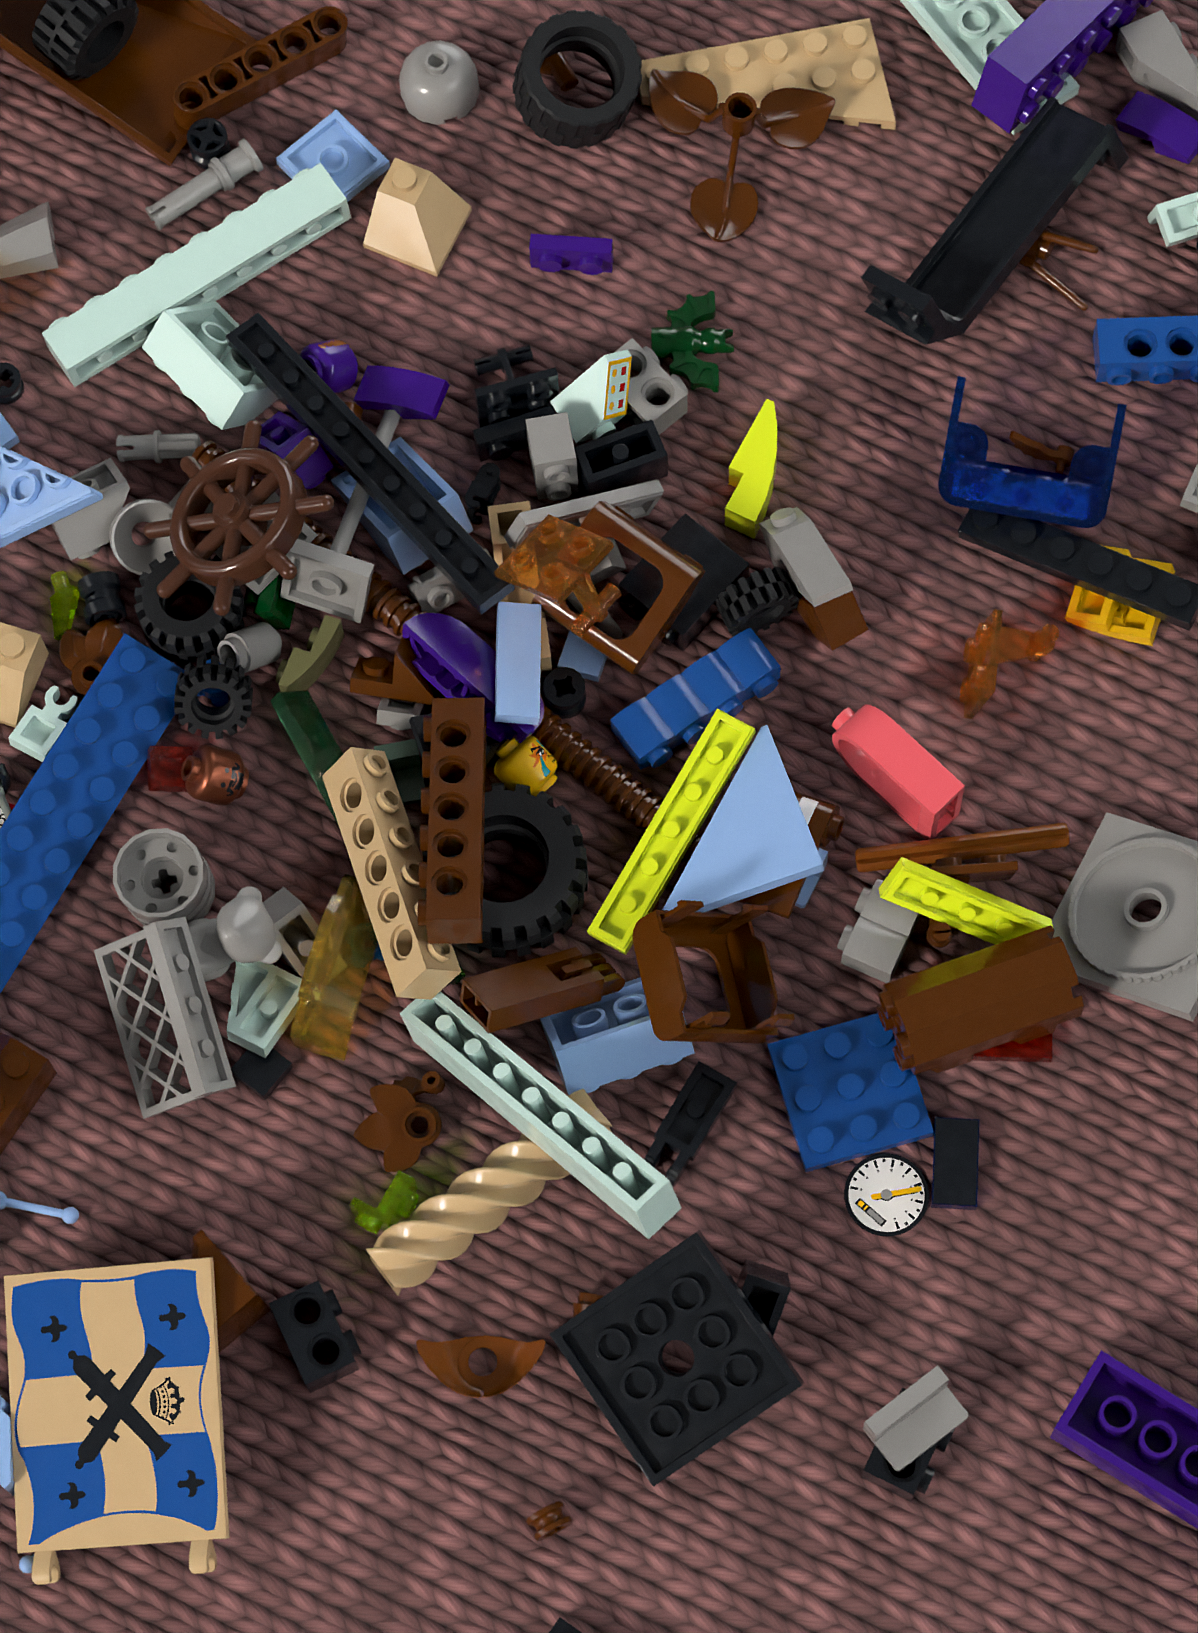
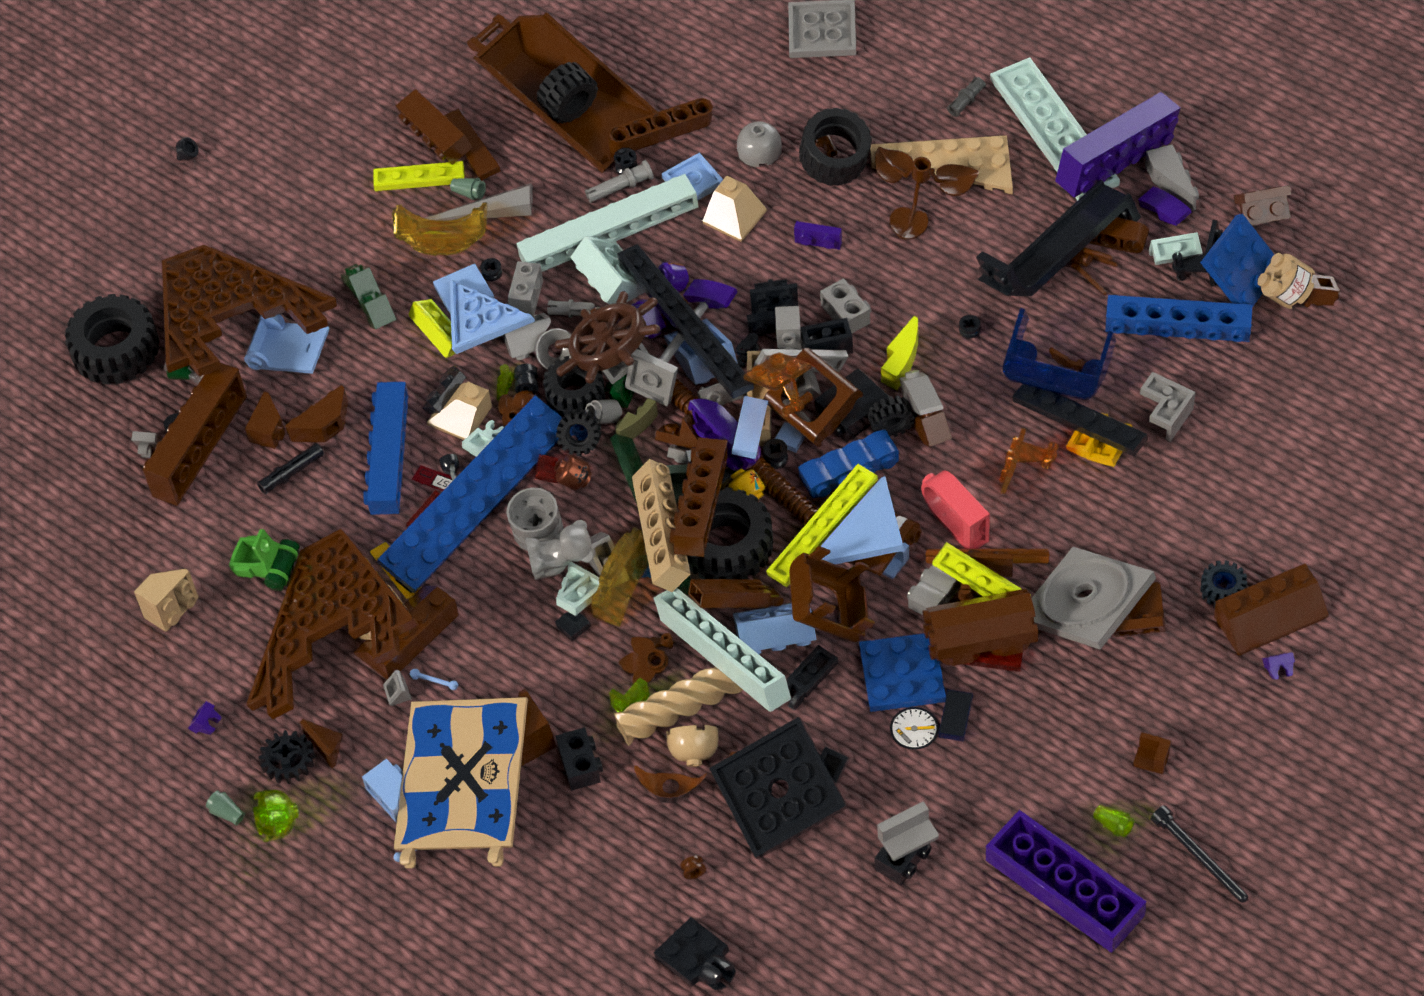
camera: 10 degrees right, 15 degrees down
(71, 419) = (526, 287): none -> light grey brick
(185, 1007) = (535, 580): light grey fence -> none
(512, 1285) = (692, 743): none -> tan cylinder
(597, 397) = (819, 302): light aqua slope -> none
(684, 342) = (873, 286): dark green animal -> none
(867, 411) = (971, 332): none -> black bush
(1107, 195) = (1123, 236): none -> reddish brown beam

